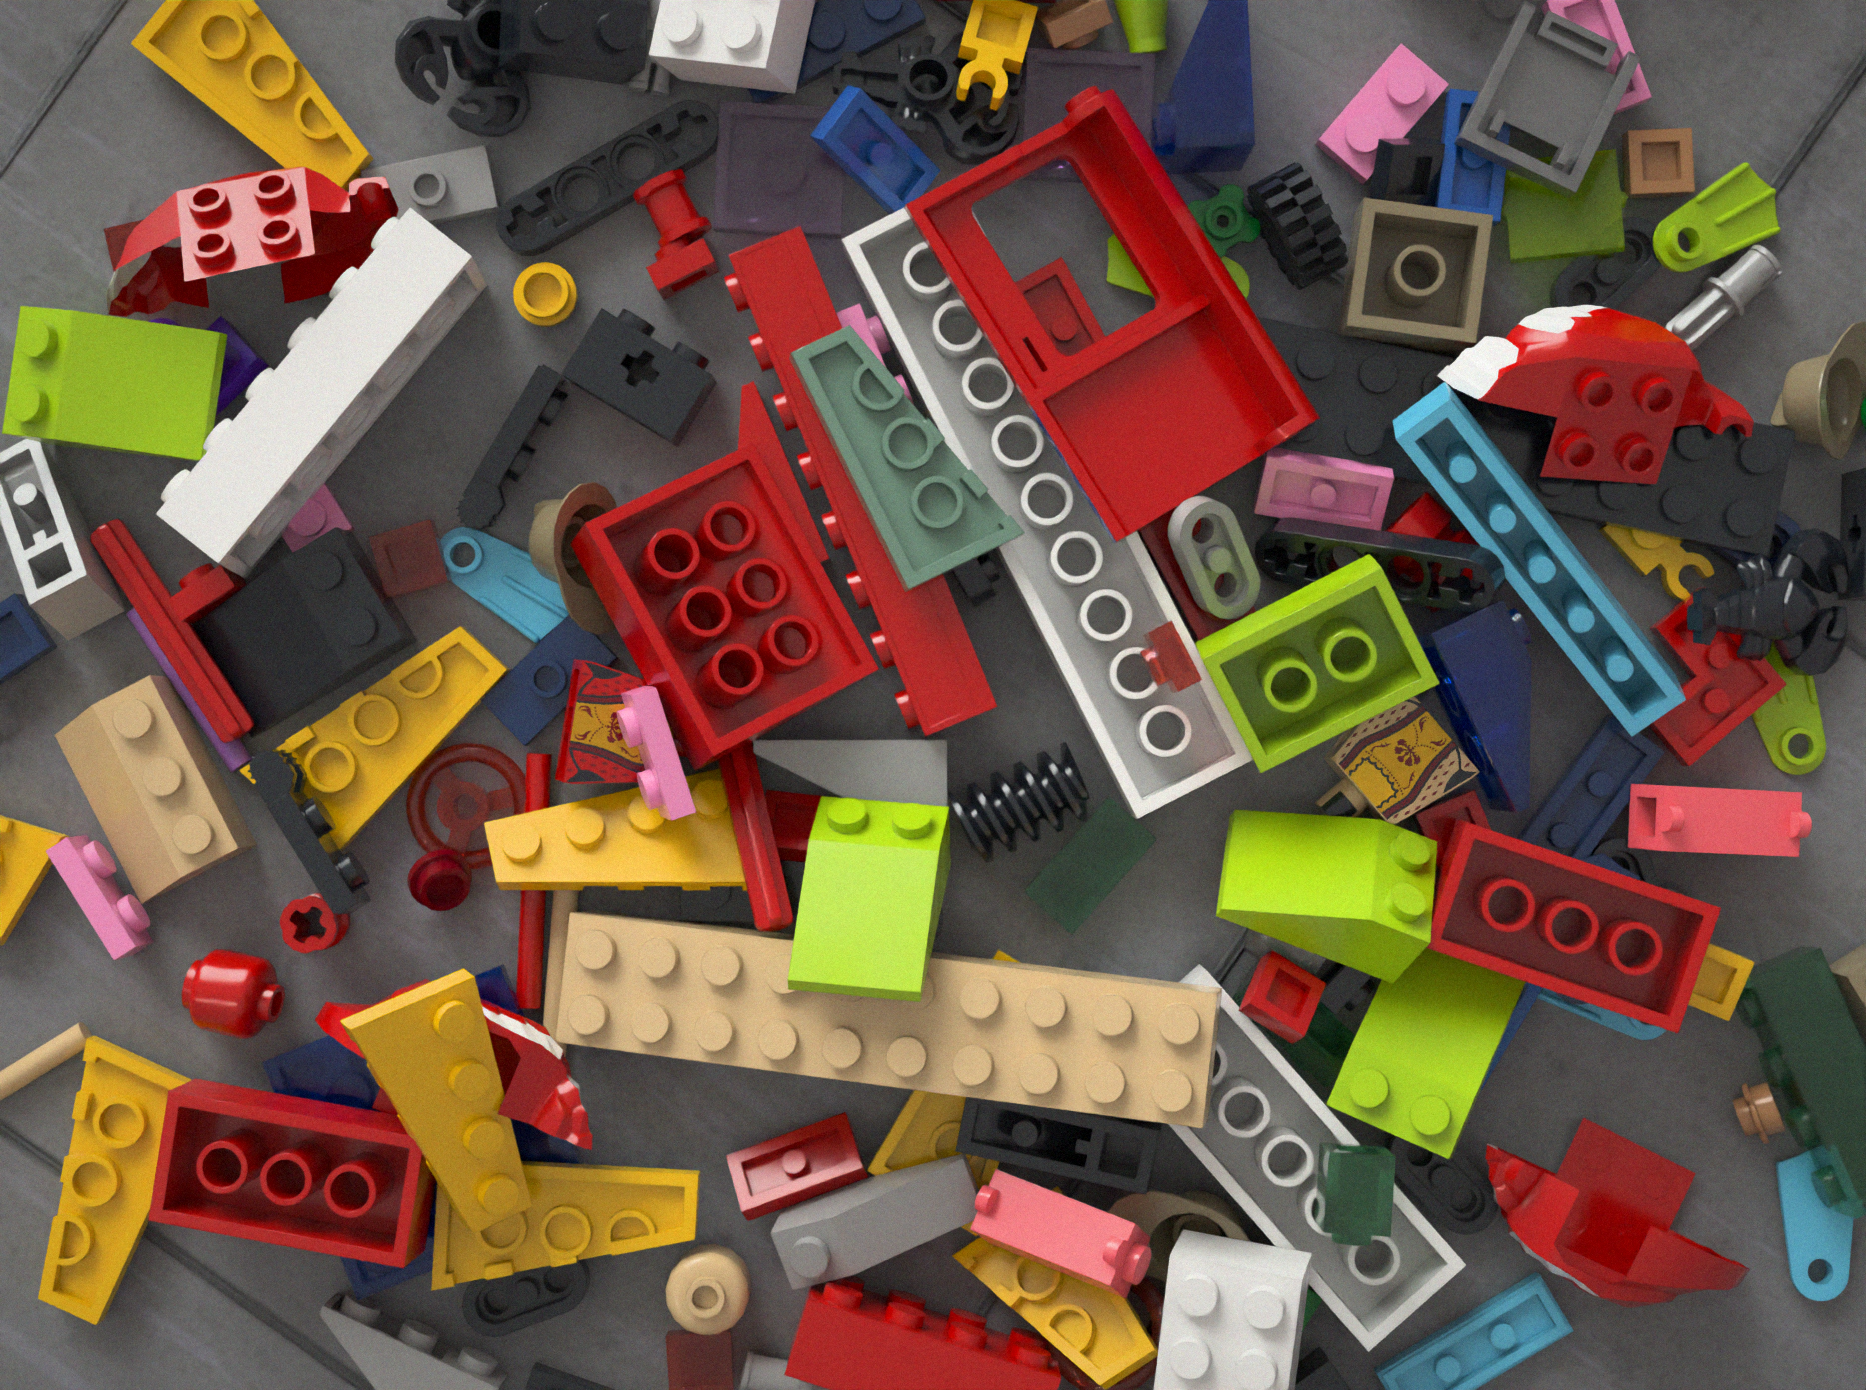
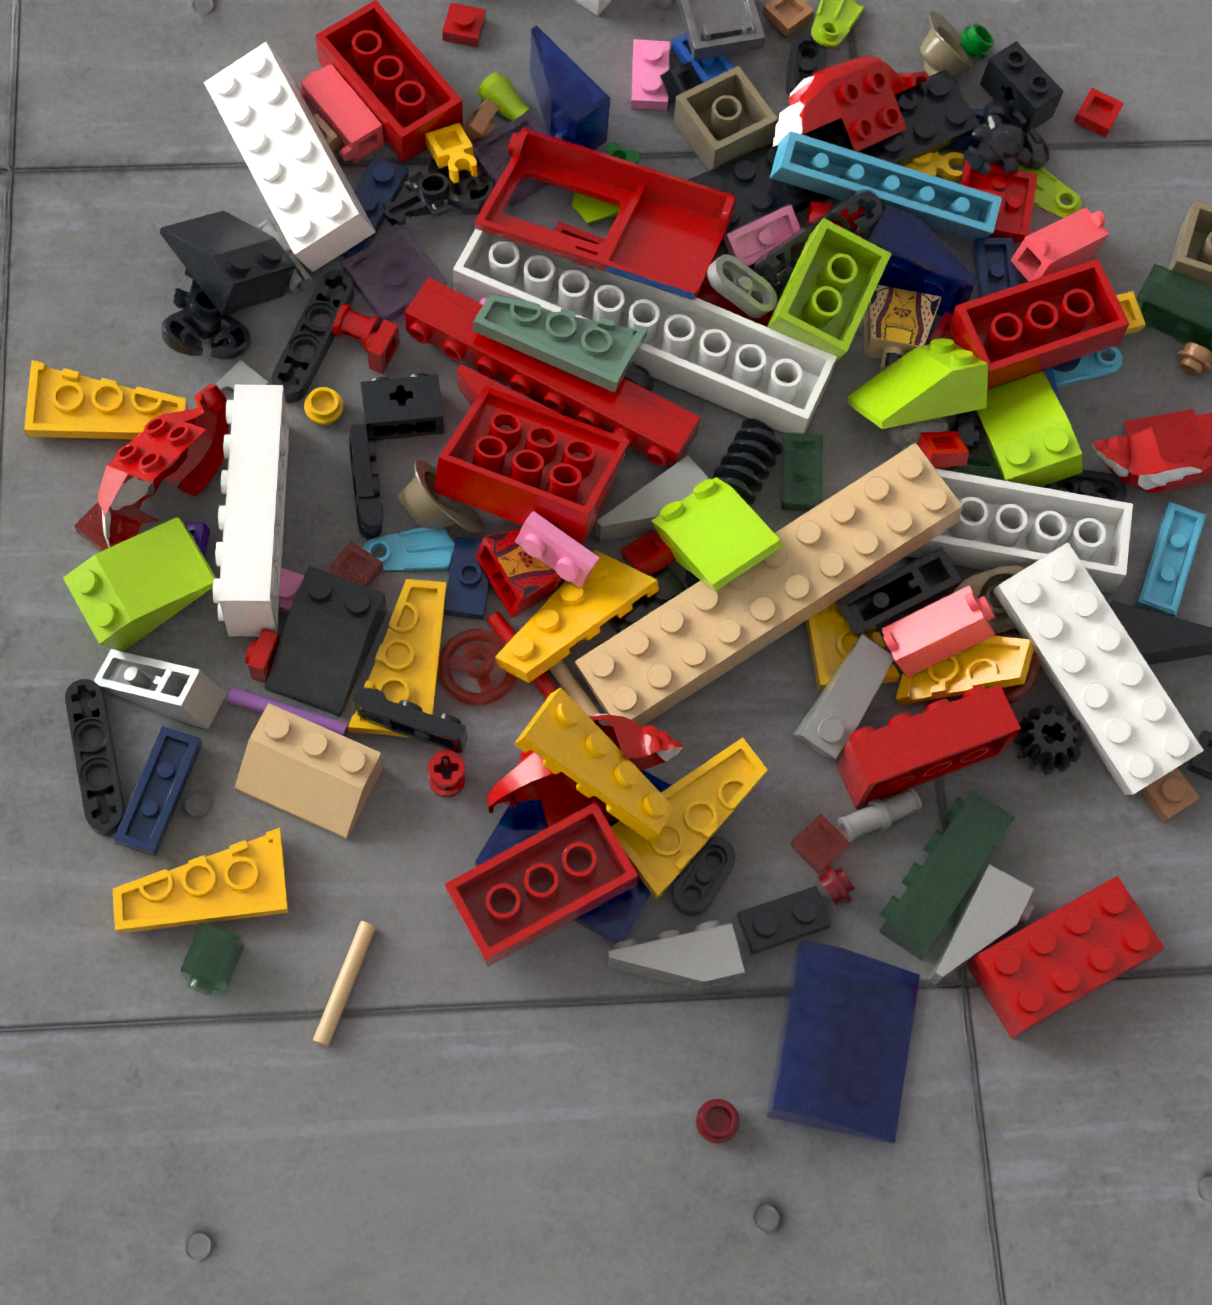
camera: 45 degrees left, 20 degrees down
(88, 874) = (309, 837): bright pink plate -> none
(106, 1178) = (439, 975): yellow wing -> none
(175, 638) = (265, 688): red axle -> none
(232, 993) = (432, 838): red head -> none
(440, 879) = (493, 707): dark red plate -> none
(708, 1289) = (793, 798): tan head -> none
(755, 840) = (636, 561): red axle -> none
(796, 1166) = (785, 711): red plate -> none
(874, 150) = (433, 231): blue plate -> none
(1169, 659) = (762, 331): clear red plate -> none
(1297, 225) = (655, 133): black tyre -> none
(1354, 1192) = (1054, 499): clear green brick -> none
(1555, 227) = (767, 64): clear neon green piece -> none
(1725, 296) = (867, 33): light grey axle -> none

